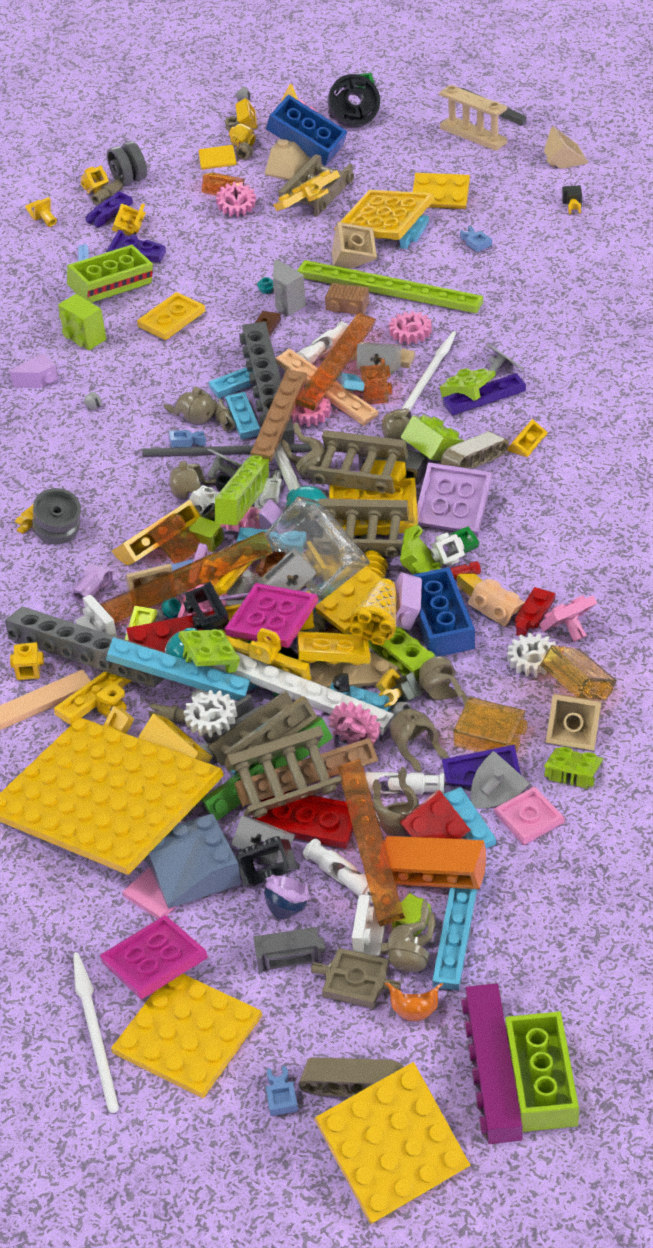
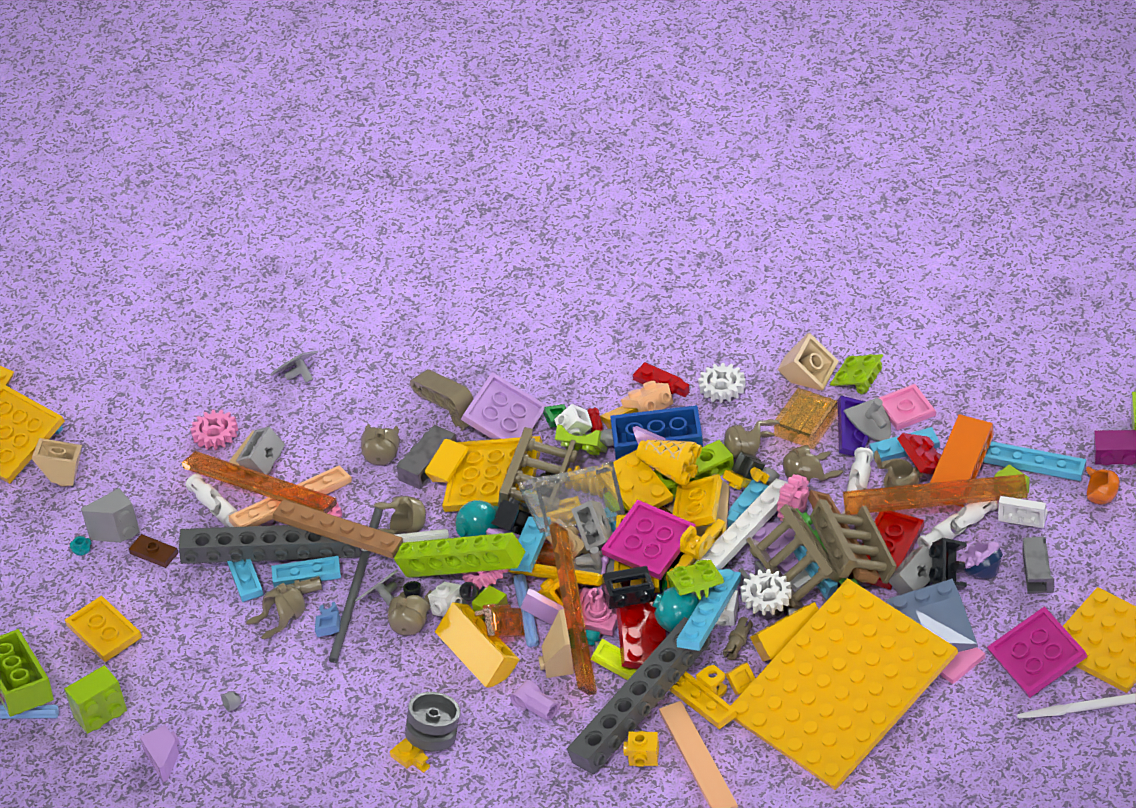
camera: 80 degrees left, 0 degrees up
(96, 617) = (597, 691): white bracket -> none
(341, 682) = (737, 503): black hinge -> none
(347, 298) = (142, 476): medium nougat brick -> none
(351, 382) = (297, 474): medium azure plate -> none
(355, 977) = (1069, 524): dark tan plate -> none
(361, 445) = (424, 454): dark tan fence -> none
(375, 380) = (299, 458): clear orange bracket -> none
(392, 286) = (130, 444): lime plate -> none
(407, 951) = (1050, 485): dark tan hair -> none
(430, 436) = (417, 414): lime brick -> none
(439, 354) = (259, 412): white piece -> none
(467, 382) = (328, 390): lime piece -> none
(476, 240) = (81, 367): medium blue plate -> none
(489, 393) = (343, 384): dark purple plate -> none
(527, 439) = (417, 362): yellow slope -> none
(569, 616) = (685, 349): bright pink plate -> none
(572, 197) = (44, 288): pearl dark grey piece -> none
(578, 672) = (761, 349): clear yellow brick -> none

